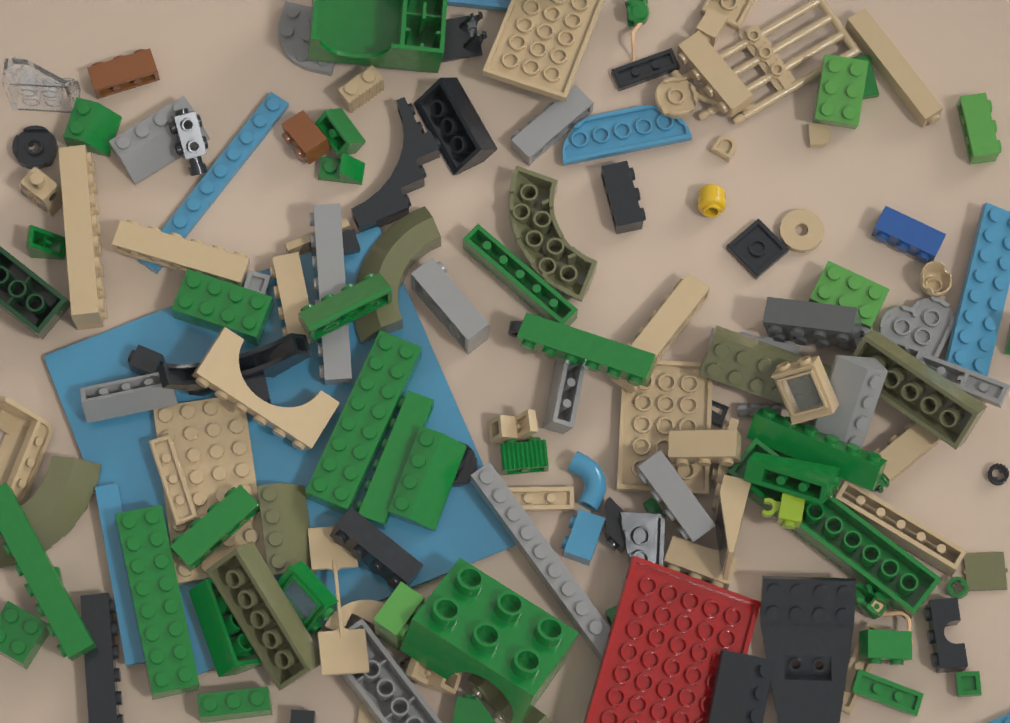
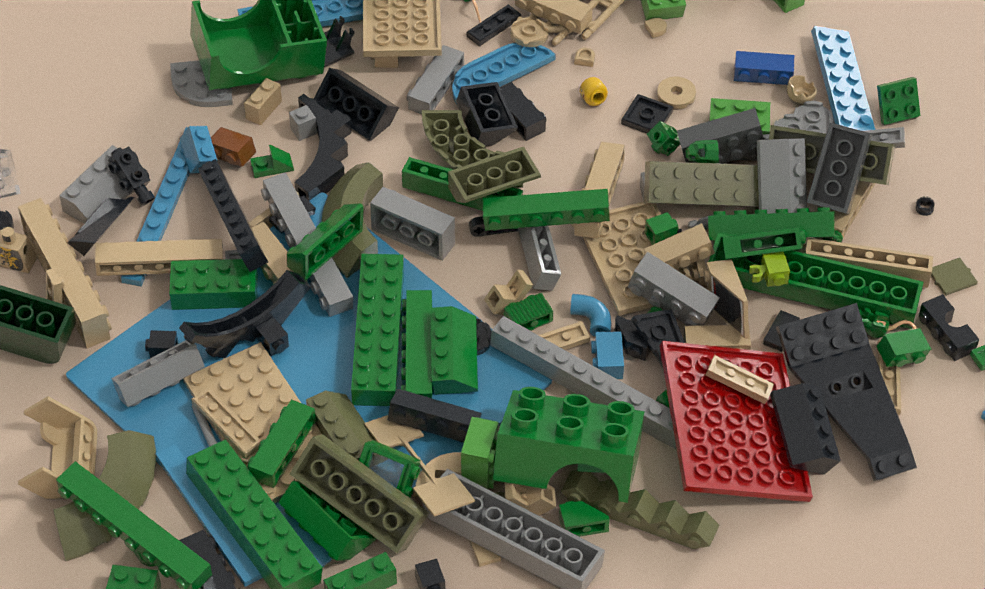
camera: 20 degrees left, 20 degrees down
(45, 244) = (30, 285): green slope -> none
(59, 269) = (54, 286): none -> tan plate
(92, 126) = (37, 185): green slope -> none
(123, 73) = (50, 150): dark orange brick -> none
(135, 192) = (98, 224): none -> black wedge
(154, 482) = (204, 427): none -> light grey bar
(222, 374) = (240, 320): tan arch -> none
(268, 235) = (233, 215): none -> black brick
(269, 131) = (197, 147): none -> dark azure brick
(340, 132) = (261, 133): green brick -> none
(391, 131) = (303, 122): none -> light grey brick
(547, 290) = (492, 175): none -> olive slope
(583, 191) = (486, 112): none -> black slope
(694, 626) = (739, 379): none -> tan plate
(701, 409) = (660, 228): none -> green brick
(757, 289) = (664, 138): none -> green brick
(780, 565) = (772, 338): none -> black tile
(782, 336) = (703, 151): none -> green rock
(805, 389) = (743, 176): tan window -> none
(886, 692) = (923, 383): green plate -> none
(911, 417) = (839, 168): none -> dark grey brick
(963, 583) = (937, 286): green bush -> none

